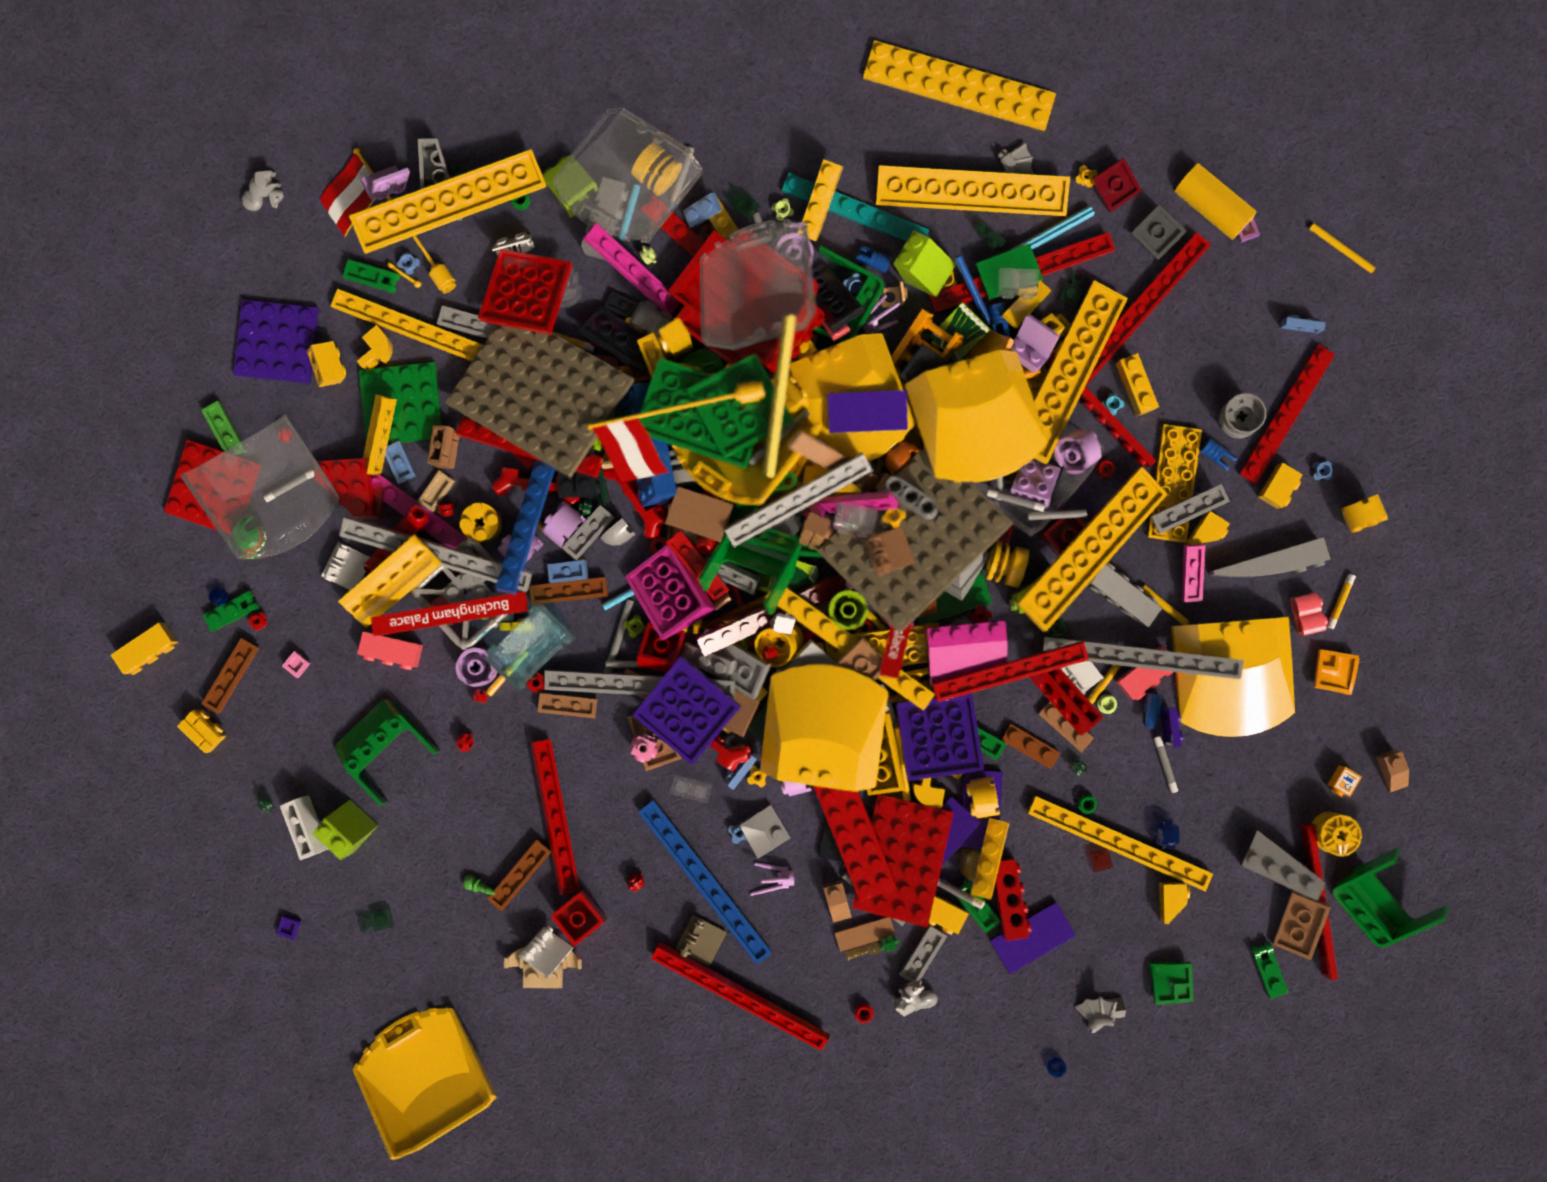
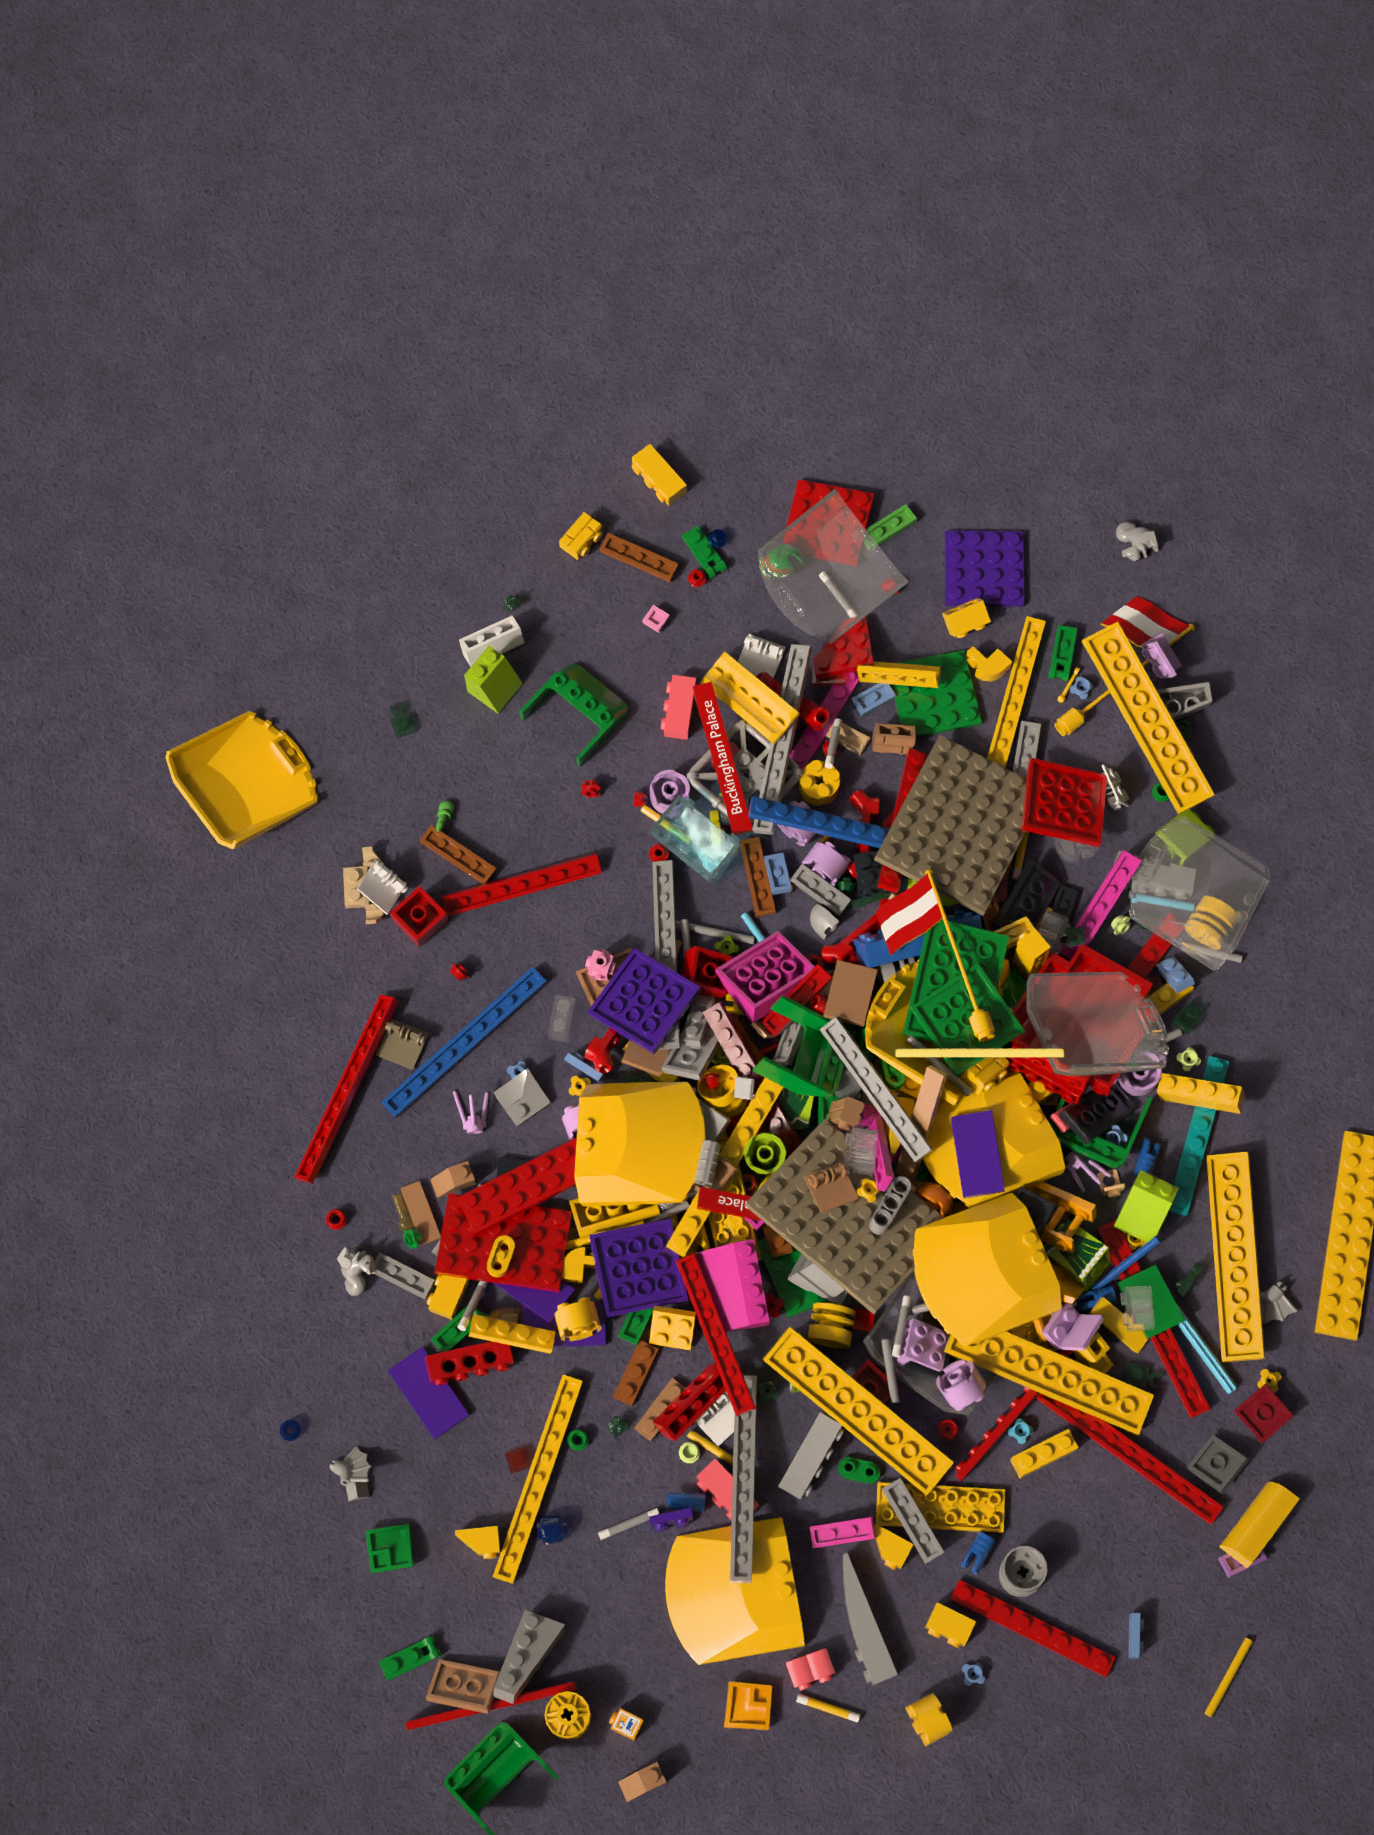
camera: 85 degrees right, 15 degrees down
(288, 927) = (388, 637): dark purple tile -> none
(444, 505) = (833, 743): none -> light grey bar
(567, 705) = (637, 887): medium nougat plate -> none
(655, 301) = (1071, 932): none -> clear green plate
(856, 665) = (707, 1163): none -> light grey axle
(920, 866) = (500, 1257): none -> yellow plate
(995, 710) = (672, 1327): none -> yellow plate
(1135, 552) = (858, 1473): none -> green plate
(1164, 605) = (804, 1507): yellow bar -> none

